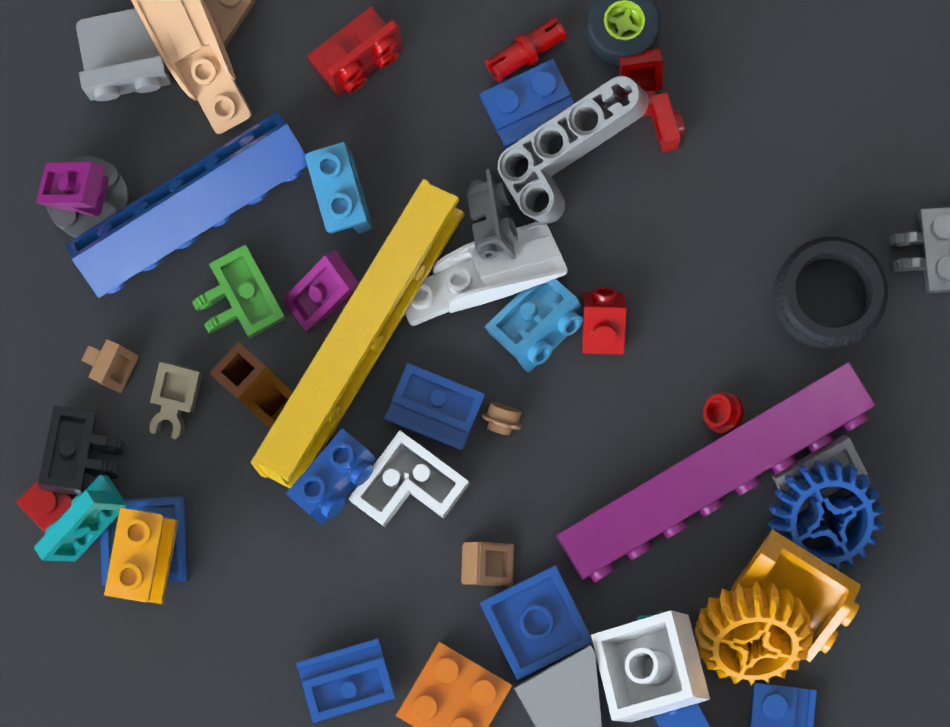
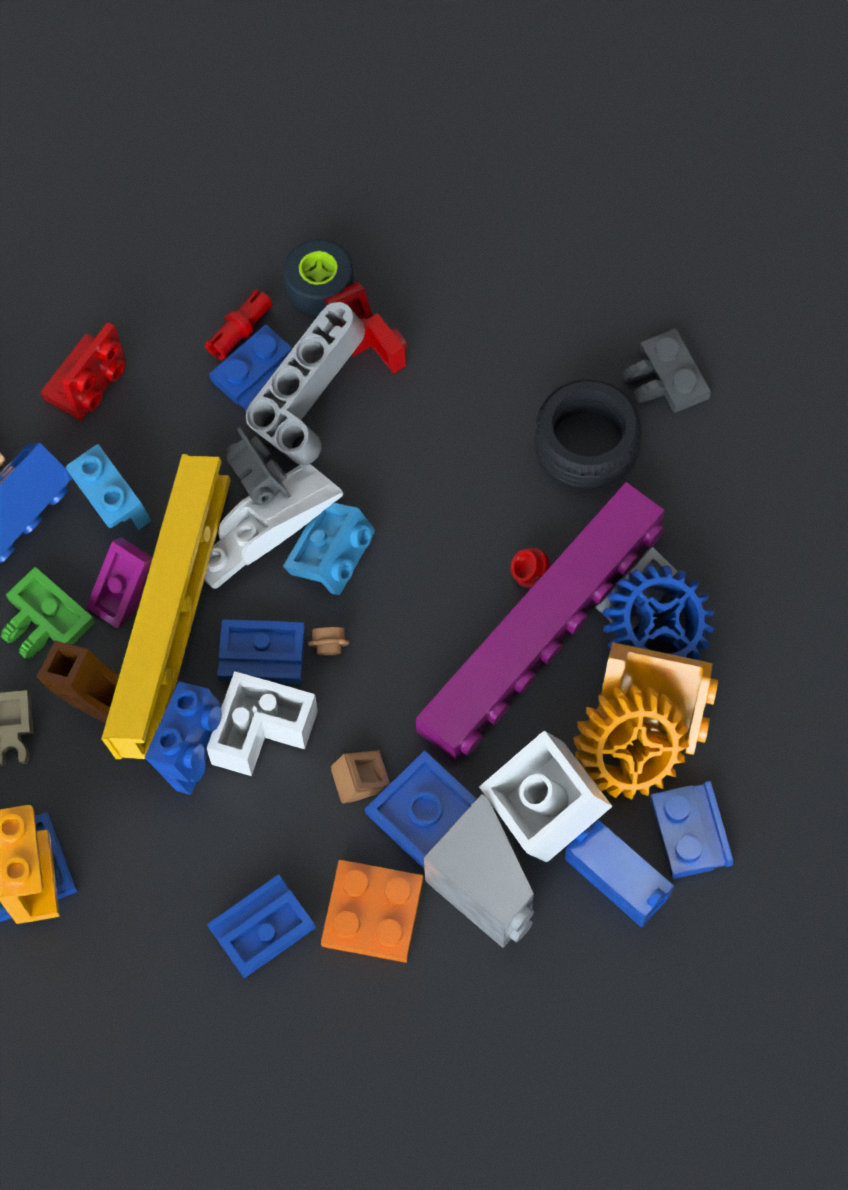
camera: 20 degrees left, 15 degrees down
(604, 321) = (392, 527): red bracket -> none

